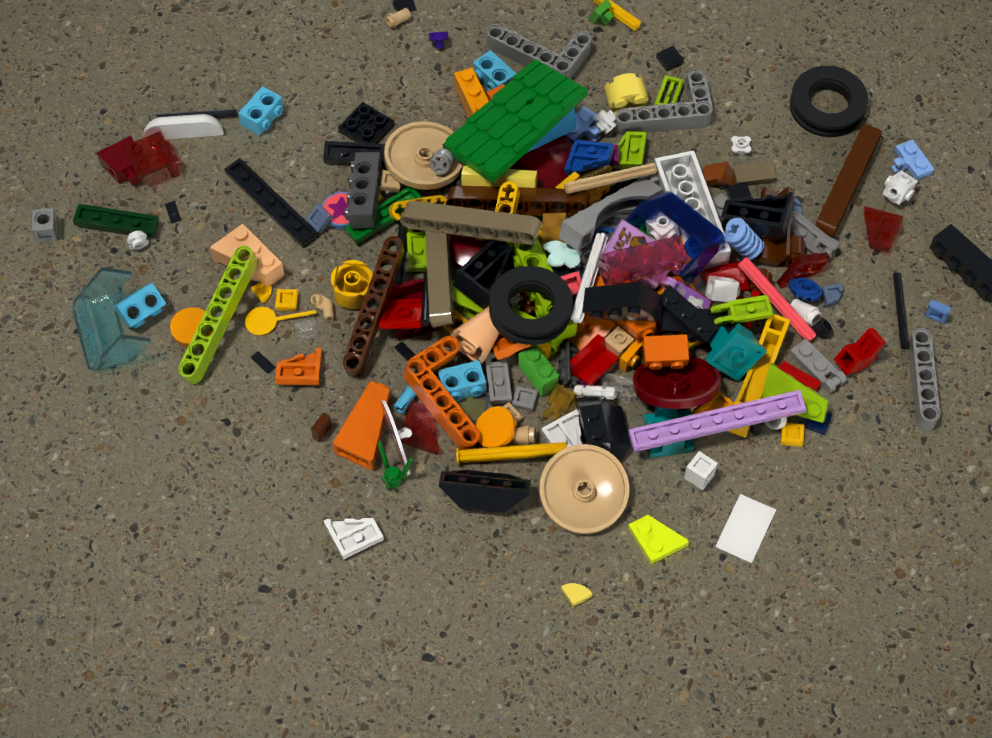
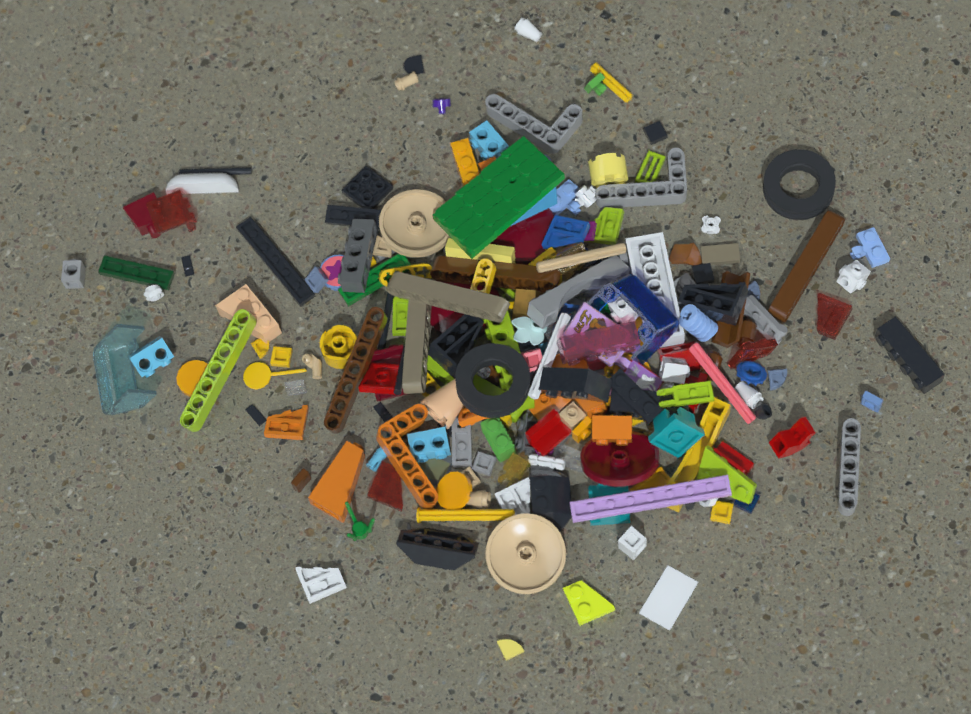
camera: 15 degrees right, 5 degrees up
(261, 111) = (269, 168): medium azure brick -> none
(396, 435) = (365, 493): white shield -> none
(441, 166) = (429, 231): light grey wheel -> none
(817, 365) = (753, 447): light grey plate -> none
(900, 307) = (838, 398): black bar -> none

